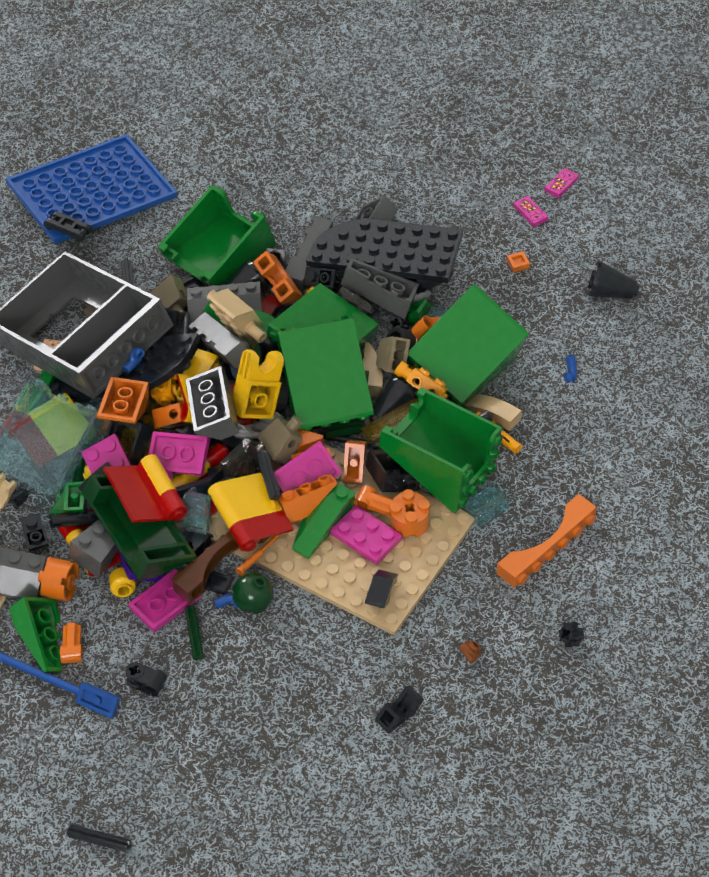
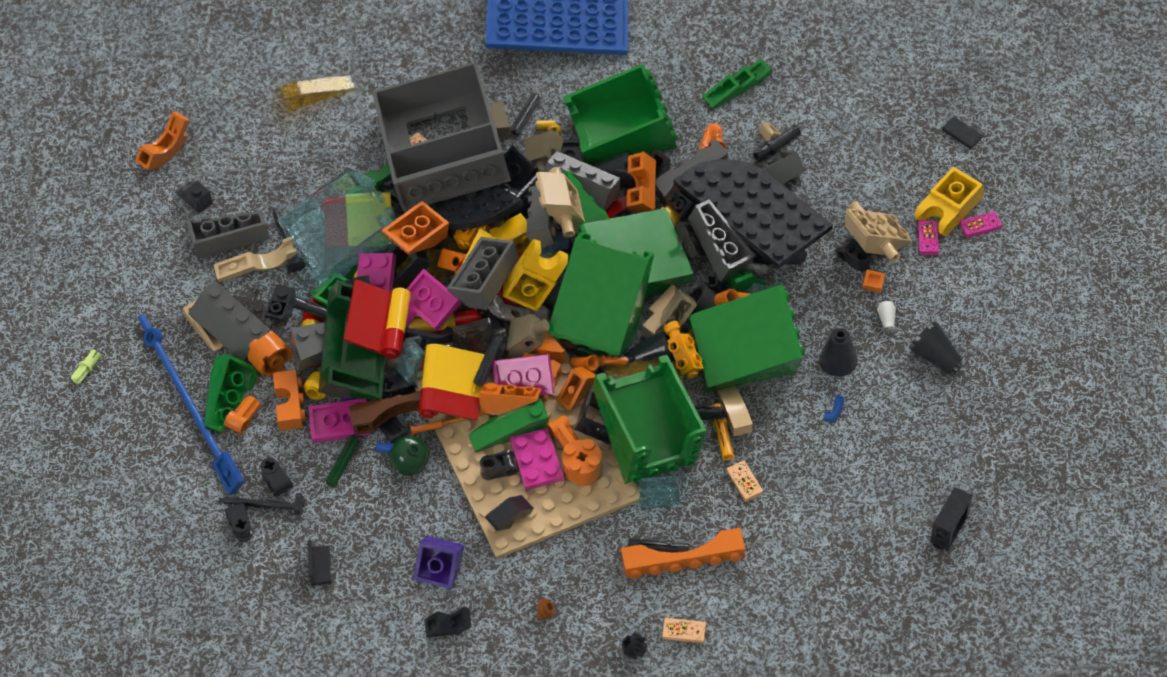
camera: 35 degrees right, 5 degrees up
(67, 225) = (504, 37): black plate -> none
(95, 597) = (289, 414): none -> orange arch
(99, 838) = (150, 585): black axle -> none
(134, 359) = (455, 195): blue arm -> none
(141, 734) = (239, 522): none -> black piece
(154, 279) = (548, 125): none -> yellow arm
(184, 692) = (297, 506): none -> black piece
(244, 728) = (319, 564): none -> black panel
(287, 174) = (737, 84): none -> green slope
(298, 221) = (711, 132): none -> orange piece
(340, 557) = (499, 464): none -> black piece
(342, 197) = (768, 131): none -> tan slope
(350, 665) = (438, 562): none -> dark purple slope
(352, 432) = (593, 362): none -> orange piece
(354, 206) = (772, 146): none -> black pin
(489, 250) = (854, 255): none -> black piece
(491, 127) = (962, 132): none -> black tile
(492, 223) = (876, 231): none -> tan slope
(527, 174) = (950, 200): none -> yellow brick
(530, 542) = (660, 546): none -> black pin
(540, 324) = (838, 354): none -> black cone
(546, 460) = (744, 481): none -> light nougat tile
(549, 280) = (887, 314): none -> white cone
(597, 600) = (684, 630): none -> light nougat tile

